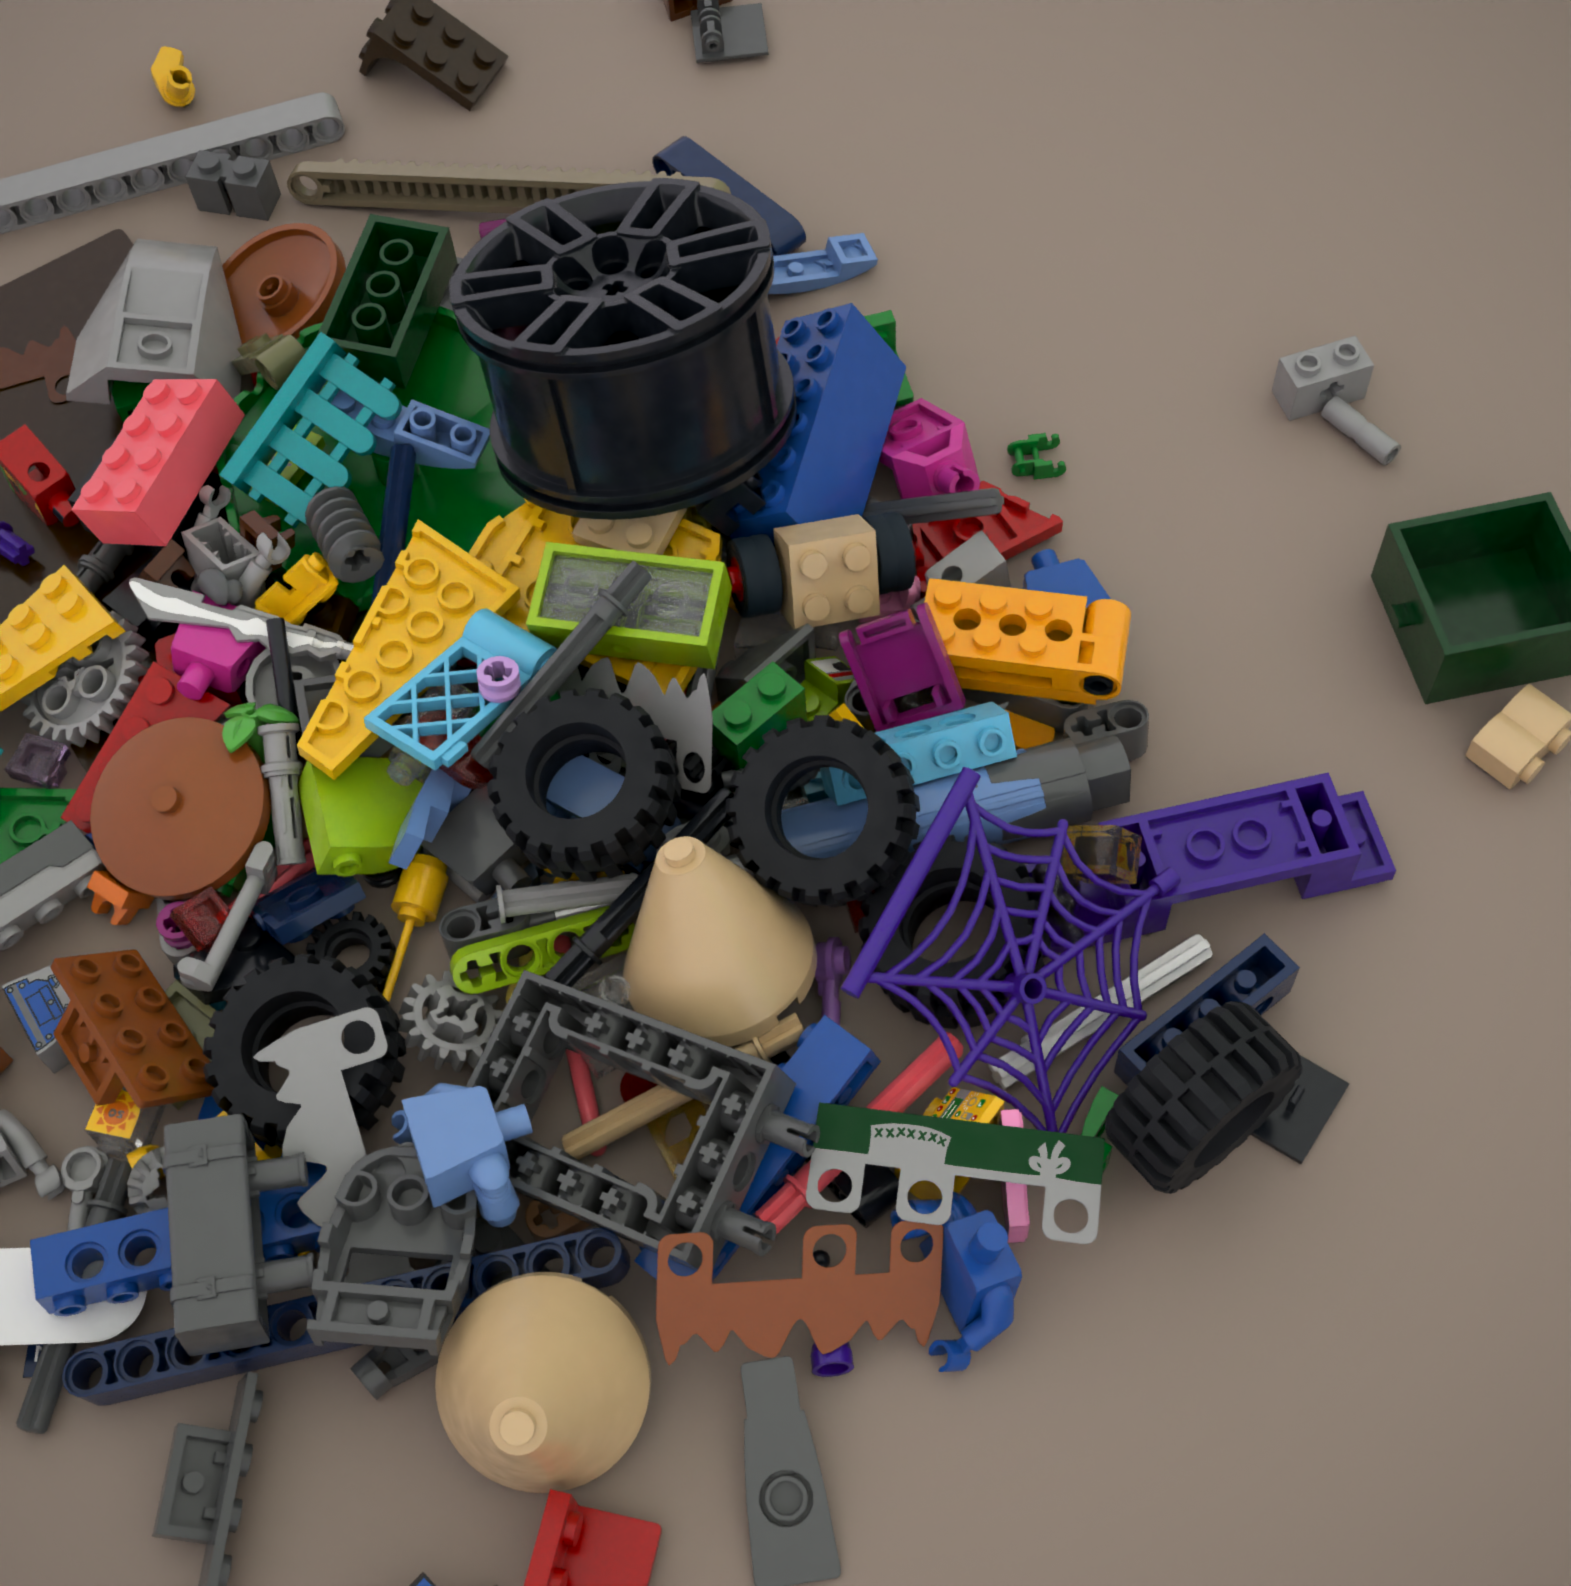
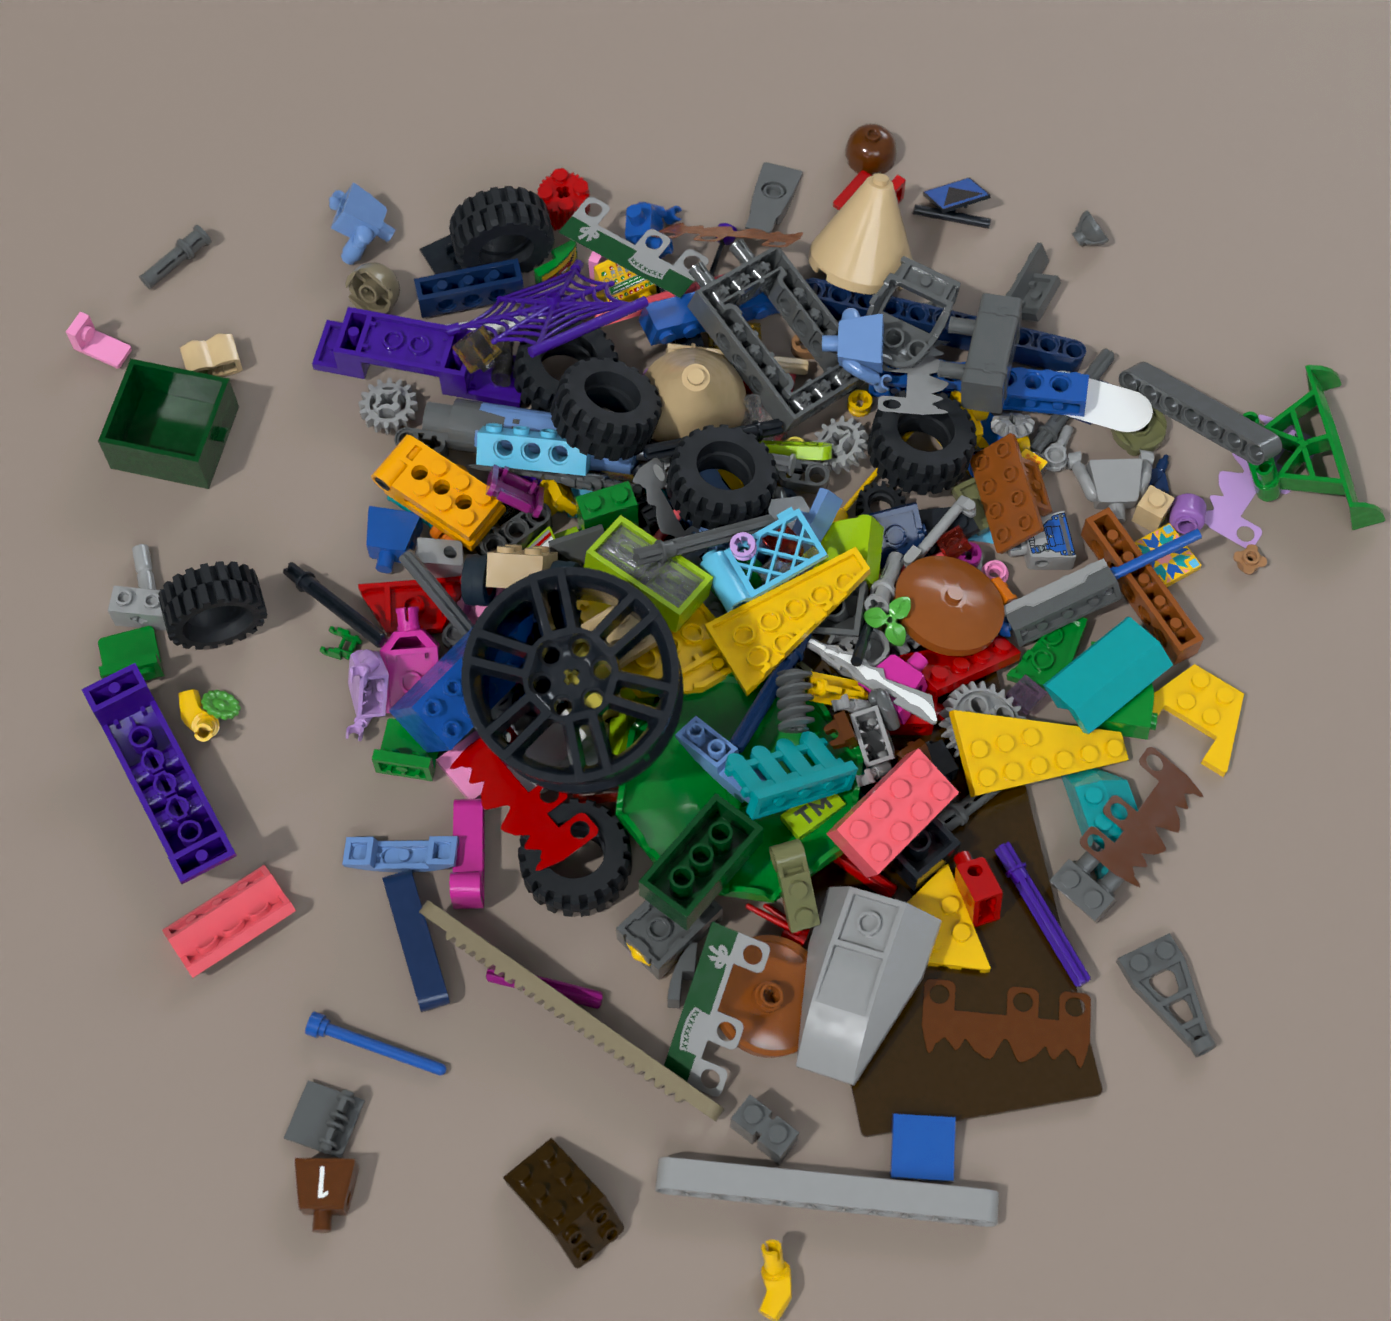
camera: 160 degrees left, 5 degrees up
(45, 241) = (922, 1147): none -> blue tile
(72, 433) = (957, 940): none -> yellow wing
(130, 926) = (996, 567): none -> bright pink plate
(333, 231) = (700, 1011): none -> piece
(784, 94) = (320, 1026): none -> blue piece
(954, 139) = (228, 921): none -> coral slope
(960, 390) = (367, 688): none -> lavender torso
(1070, 468) = (308, 583): none -> black axle
(1111, 198) = (159, 773): none -> dark purple slope
(1134, 324) = (220, 704): none -> bright green piece
(1148, 302) = (195, 717): none -> yellow arm
(1161, 1248) = (563, 195): none -> red brick
(1181, 768) = (387, 410): none -> light grey gear
(1218, 372) = (212, 605): none -> black tyre
(1280, 320) = (131, 647): none -> green bracket
(1360, 955) = (373, 287): none -> dark tan cylinder
(1479, 1063) = (360, 219): none -> medium blue torso

